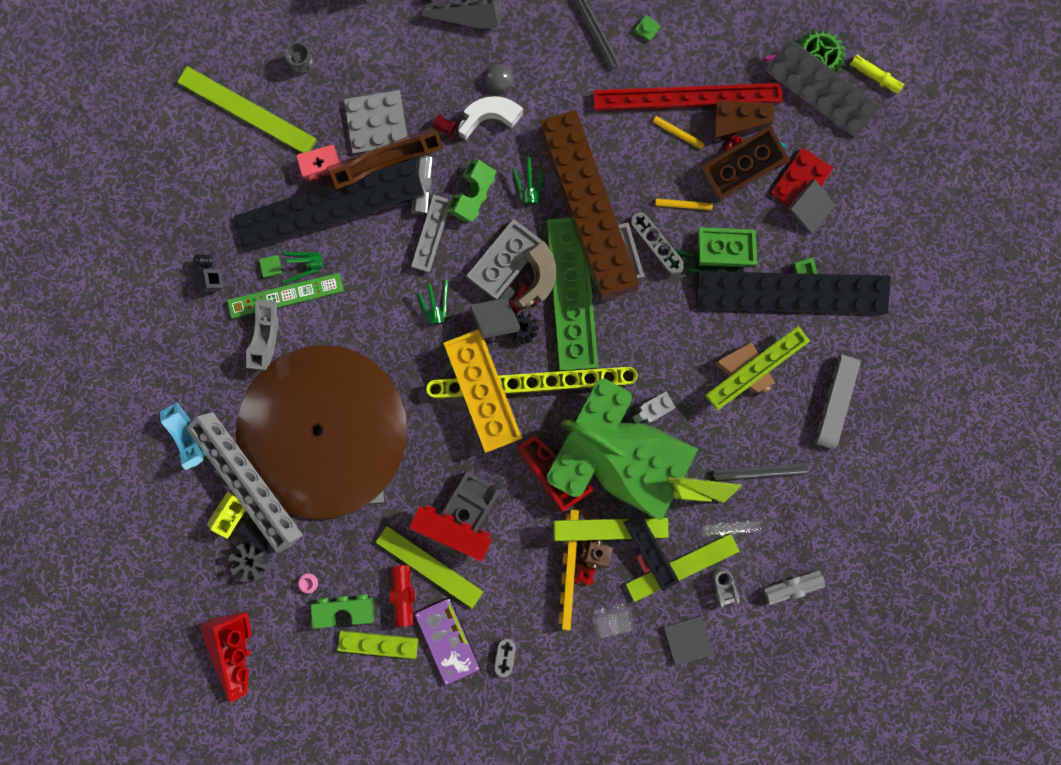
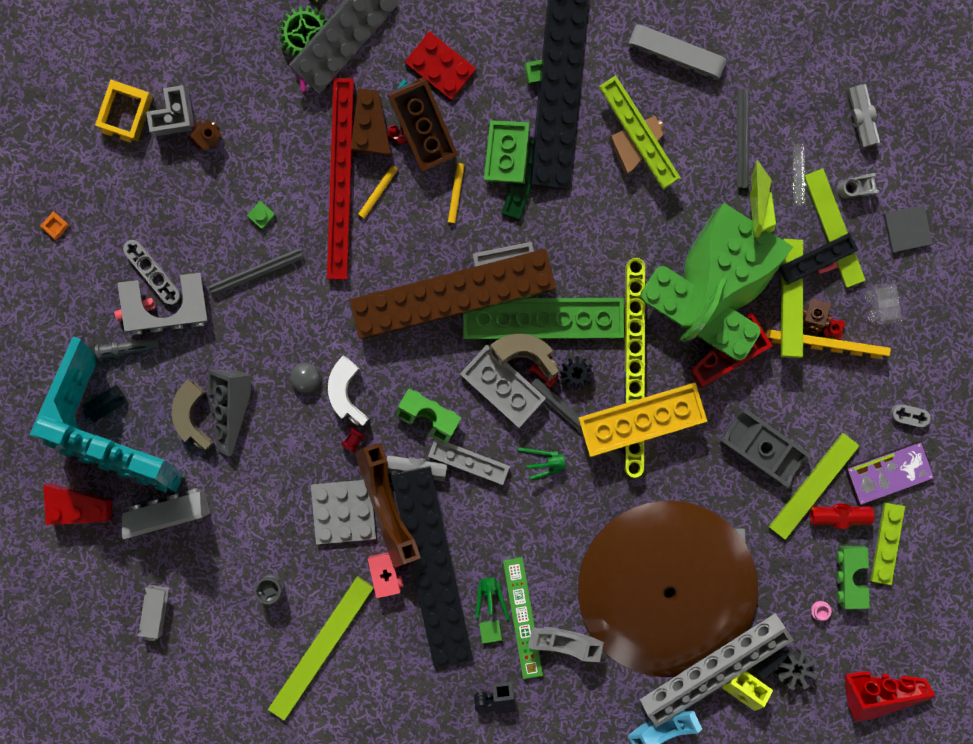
camera: 85 degrees left, 5 degrees up
(451, 533) = (786, 461): red brick -> none
(494, 318) = (567, 401): dark grey tile -> none
(529, 195) = (435, 355): green plant -> none
(654, 408) = (672, 243): light grey hinge -> none
(656, 244) = (496, 223): light grey beam -> none
(811, 206) = (470, 58): dark grey tile -> none

